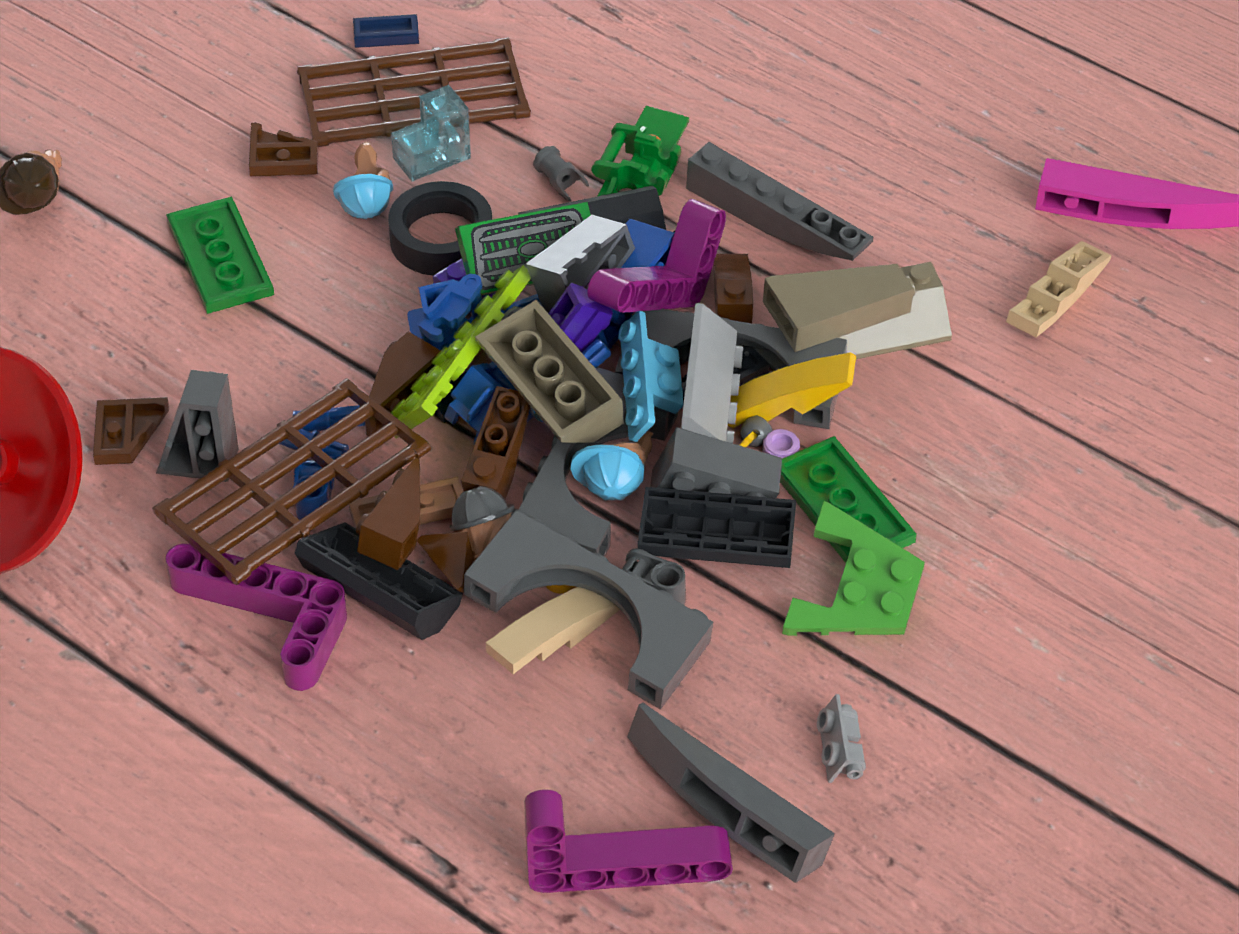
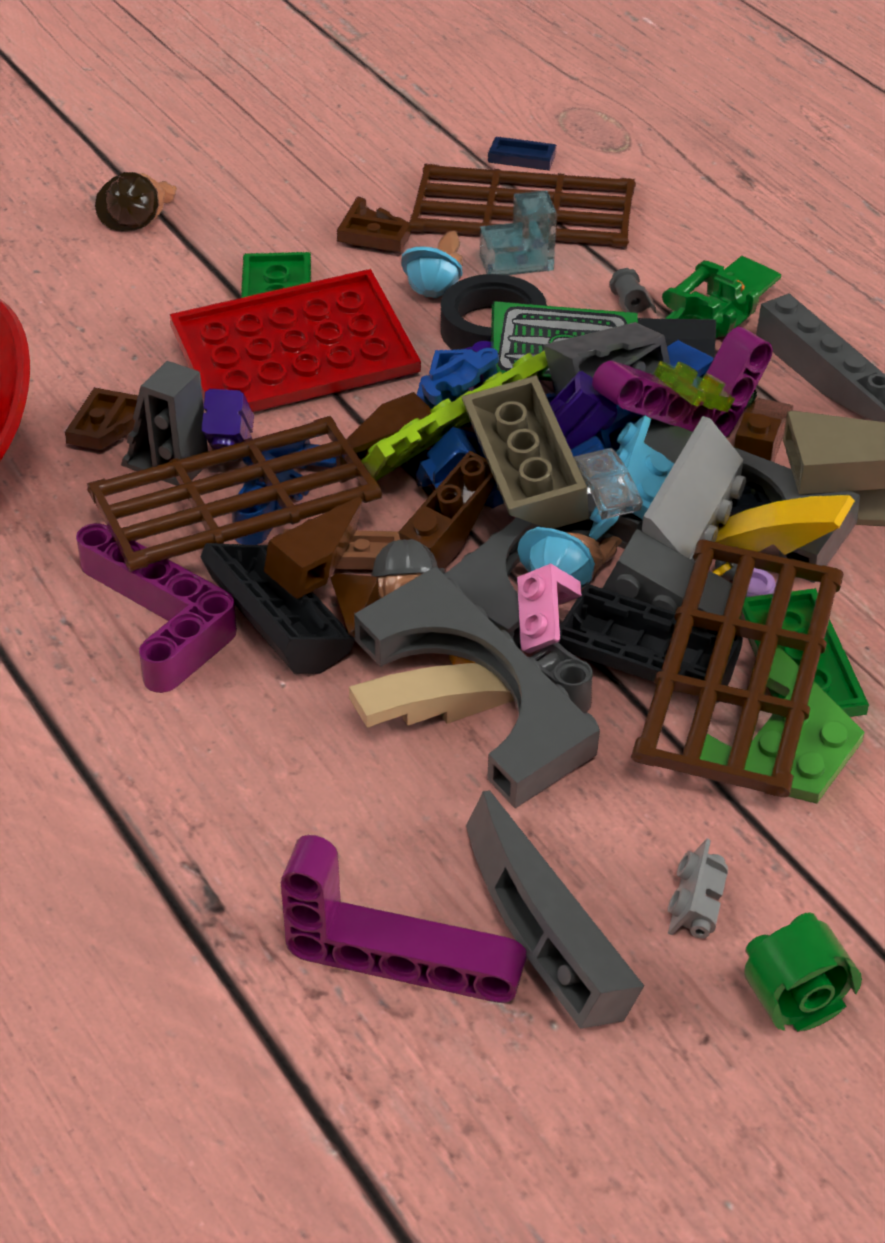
camera: 20 degrees right, 5 degrees down
(253, 410) = (226, 418): none -> dark purple brick
(267, 303) = (297, 341): none -> red plate
(618, 522) = (538, 605): none -> bright pink bracket
(638, 389) = (609, 483): none -> clear slope
(675, 272) = (695, 389): none -> clear neon green wing
(789, 559) = (754, 698): none -> reddish brown door
(951, 787) = (801, 973): none -> green brick

